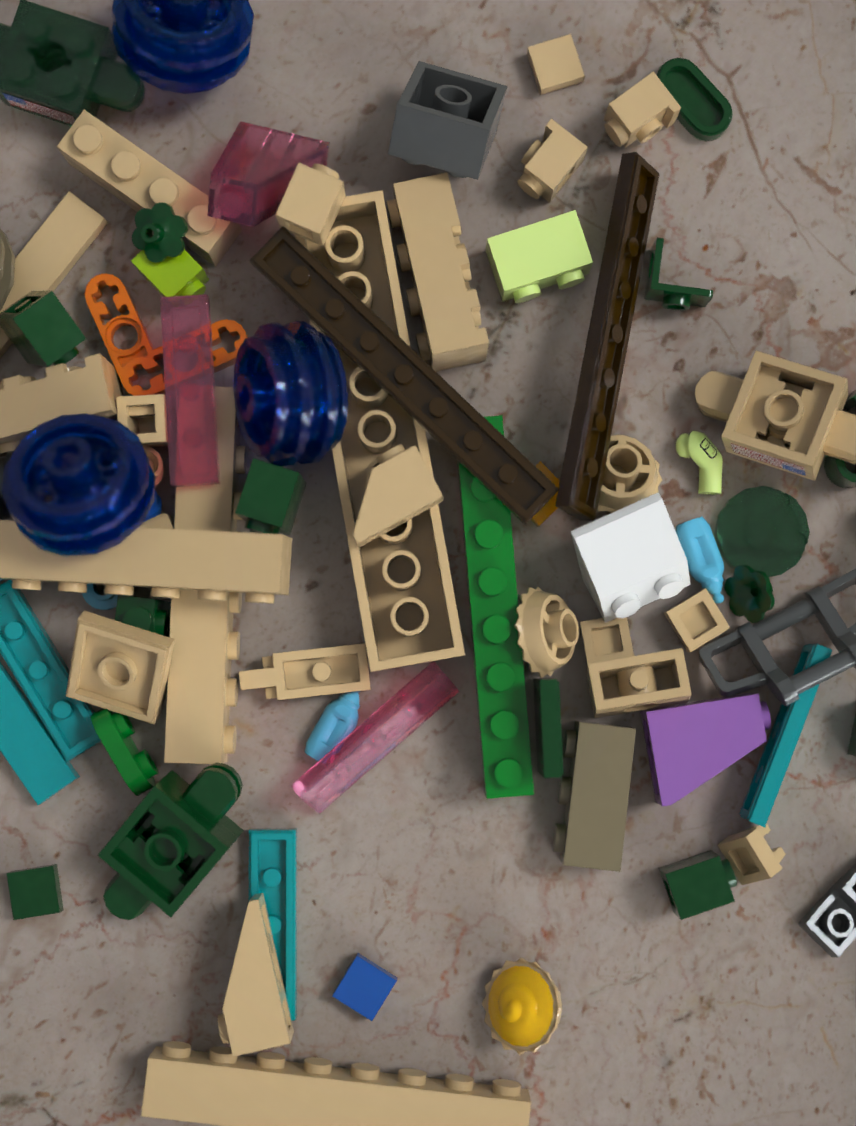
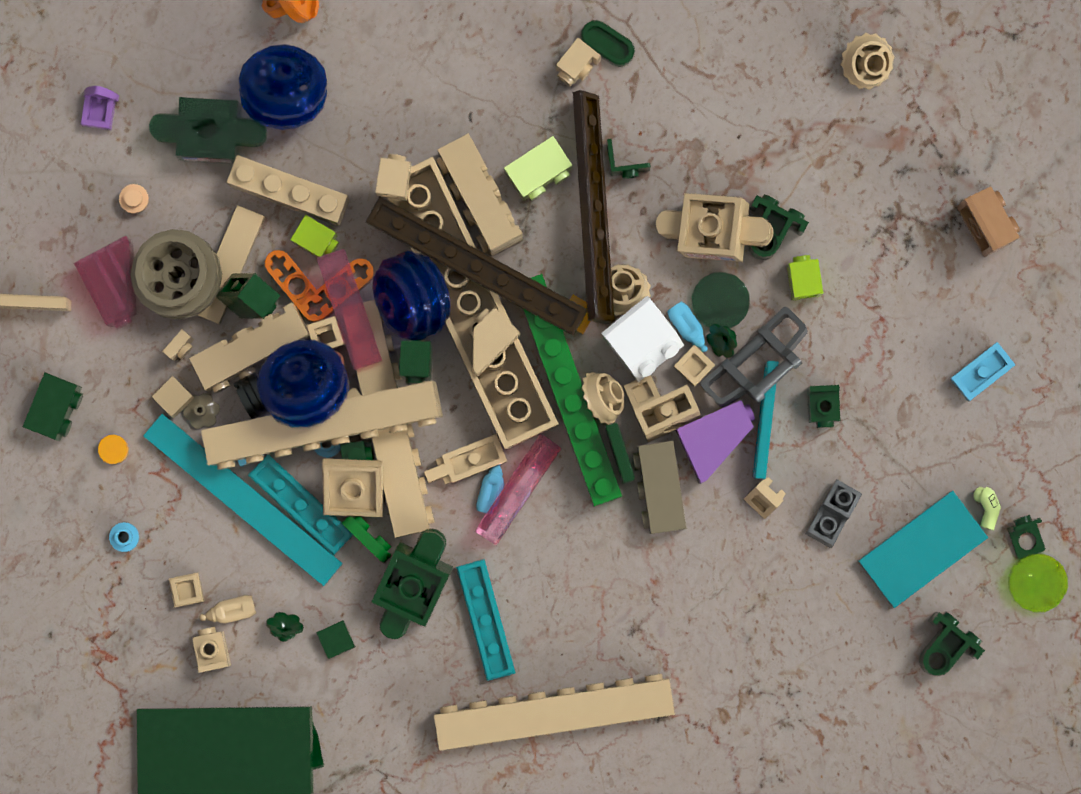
camera: 15 degrees left, 0 degrees up
(167, 230) = (308, 214): dark green plant -> none
(255, 999) = (488, 663): tan slope -> none
(257, 171) = (356, 164): clear pink slope -> none
(364, 987) = (552, 642): blue tile -> none
(446, 120) = (460, 101): dark grey brick -> none
(522, 1006) = (649, 625): yellow piece -> none
(551, 163) = (530, 108): tan brick -> none
(555, 64) = (516, 44): tan tile -> none
(698, 884) = (737, 524): dark green brick -> none
(706, 456) = (674, 264): yellowish green arm -> none

